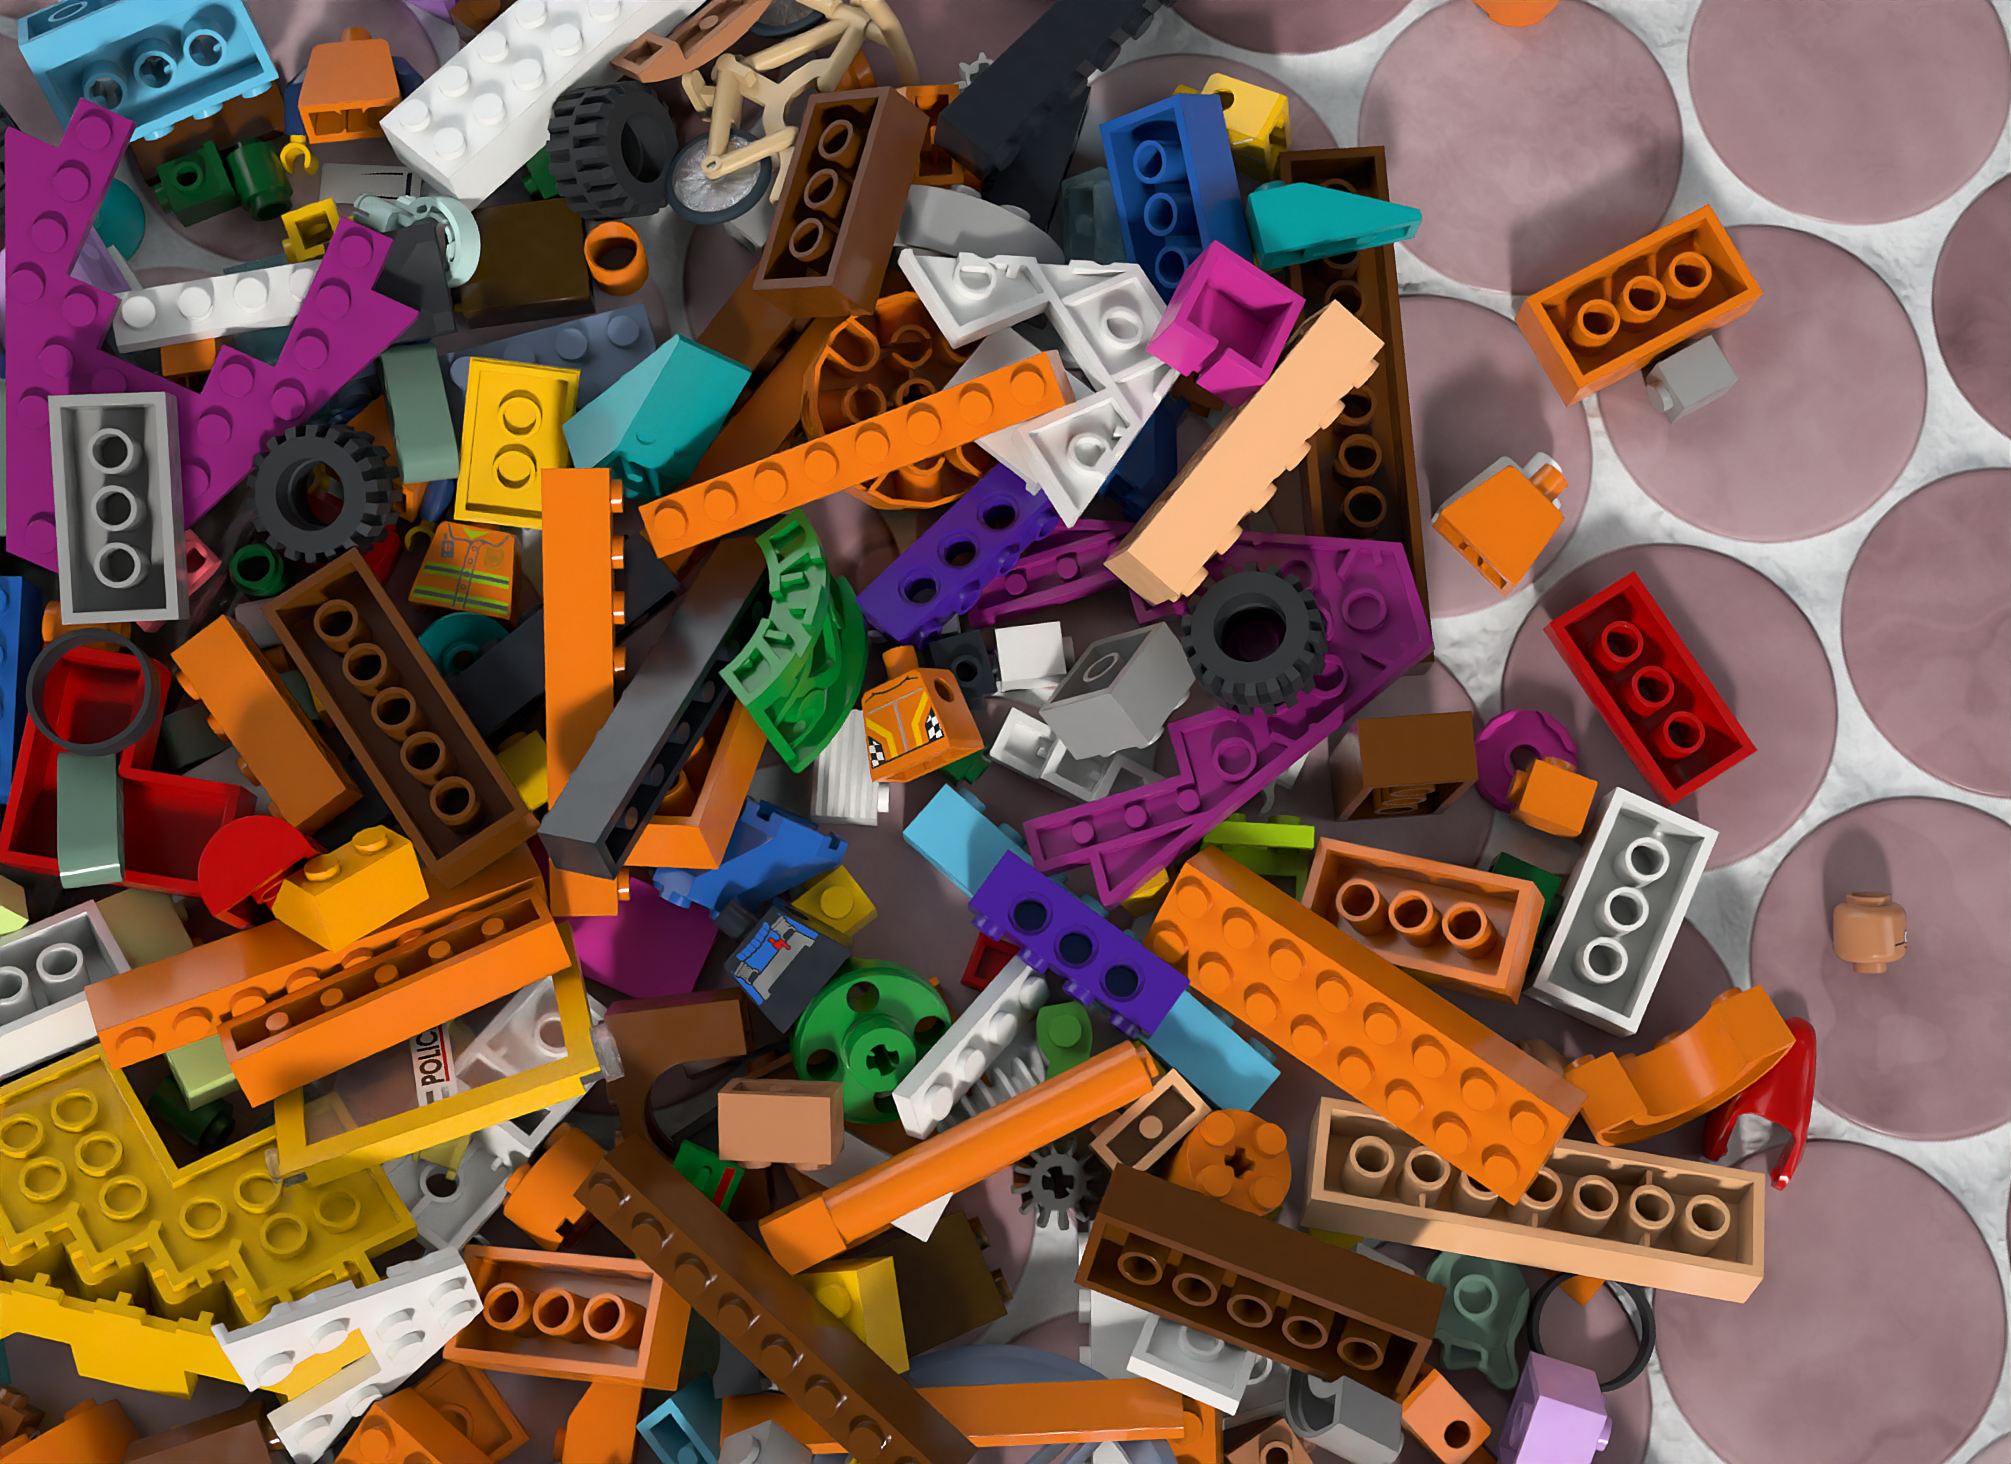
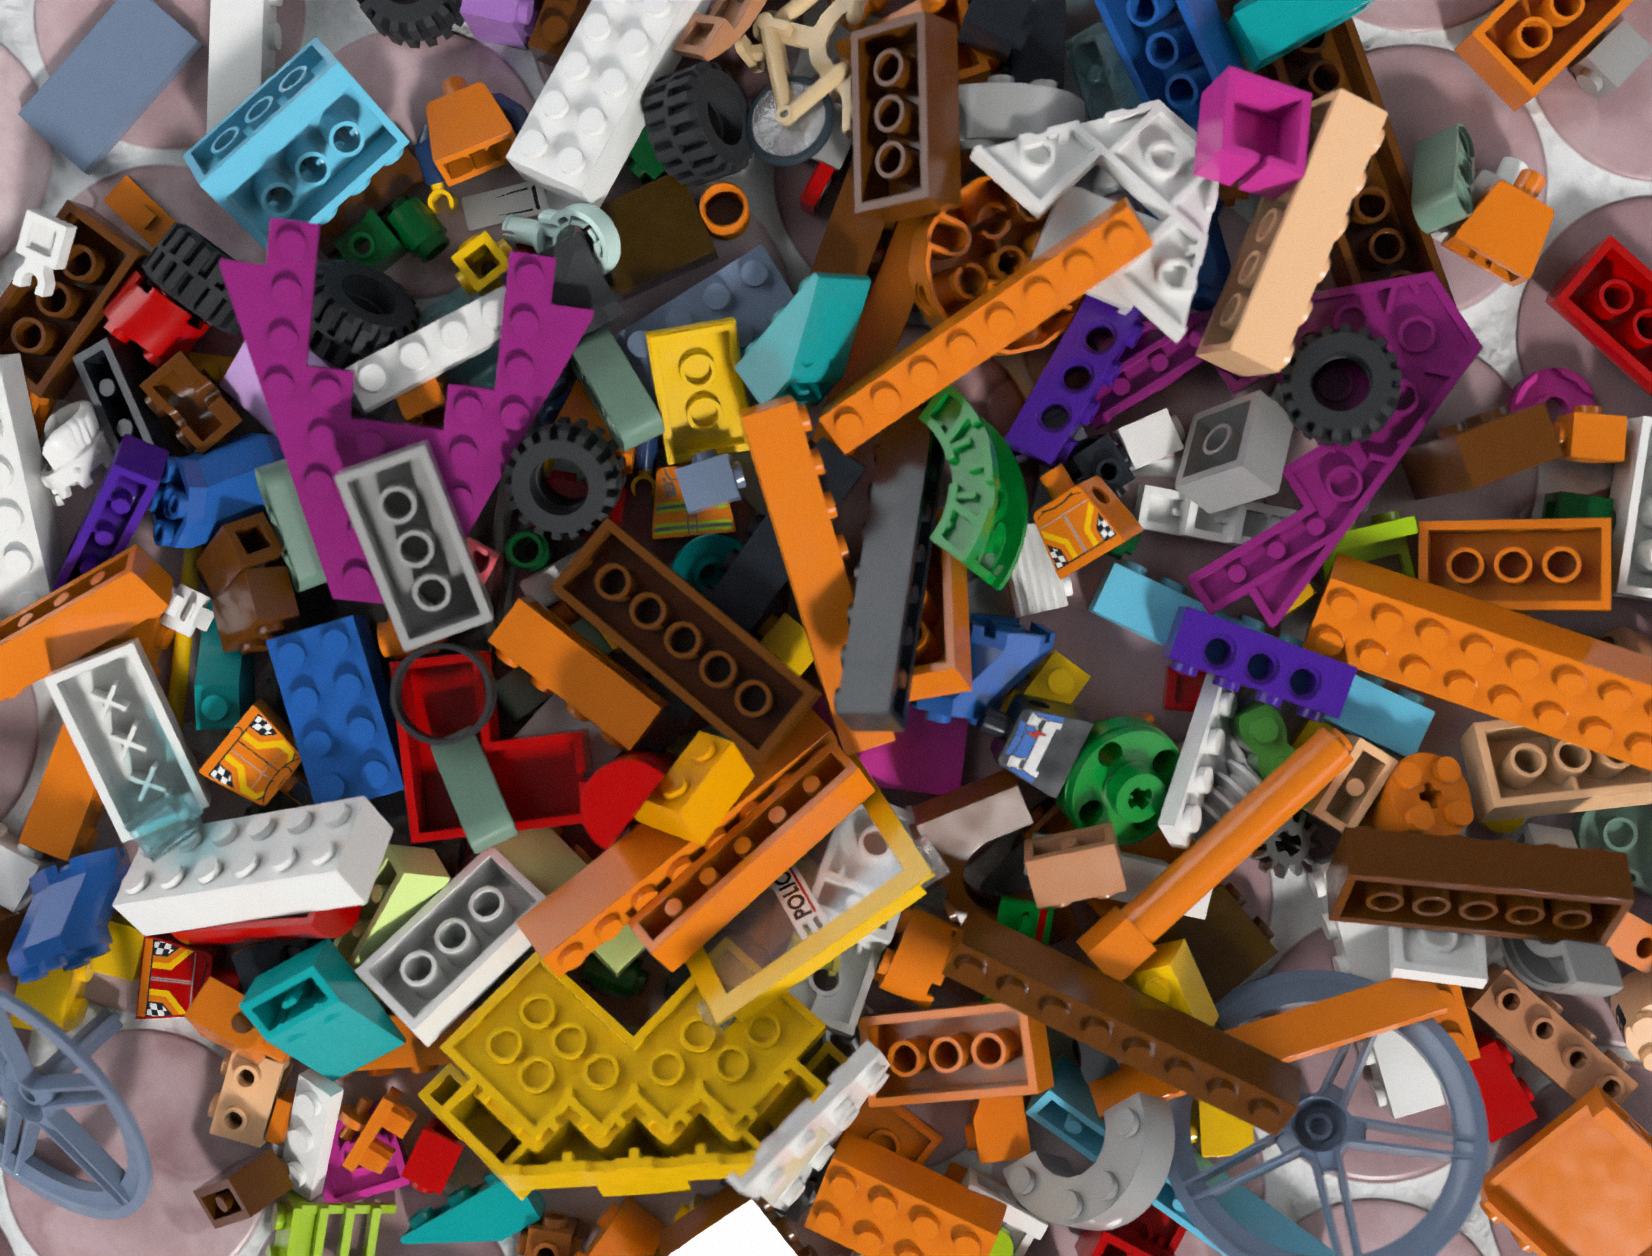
camera: 10 degrees left, 10 degrees up
(149, 240) = (358, 312): none -> black tyre
(494, 550) = (710, 481): none -> sand blue brick
(731, 264) = (817, 188): none -> red tile
(1452, 450) = (1443, 178): none -> sand green beam

